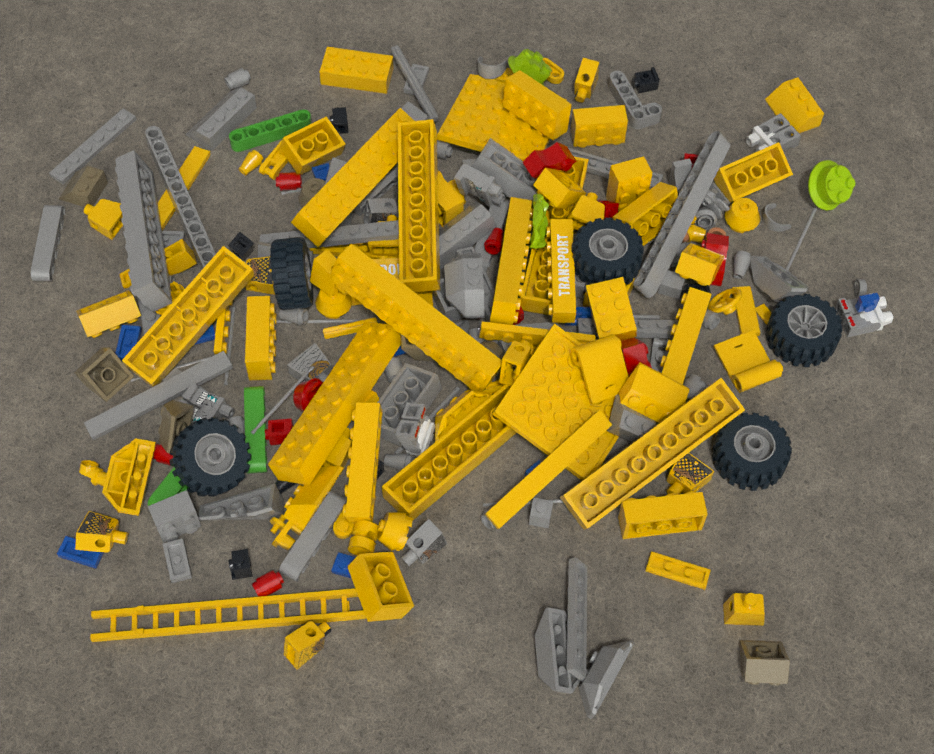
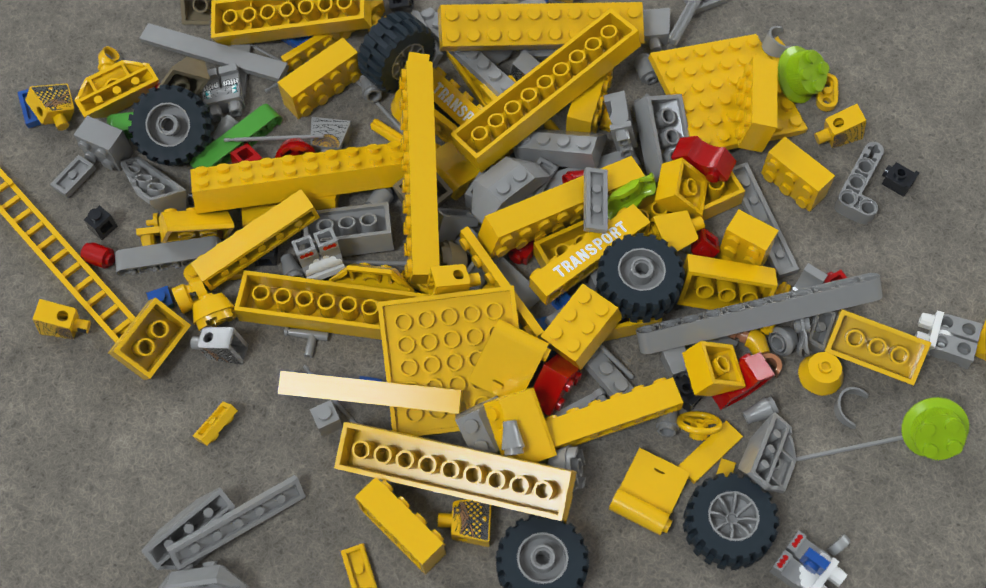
camera: 55 degrees right, 5 degrees up
(463, 483) = (311, 335): none -> light grey piece
(483, 588) = (213, 425): none -> yellow plate
(533, 235) = (595, 200): none -> light grey plate
(664, 401) = (511, 439): none -> light grey cone

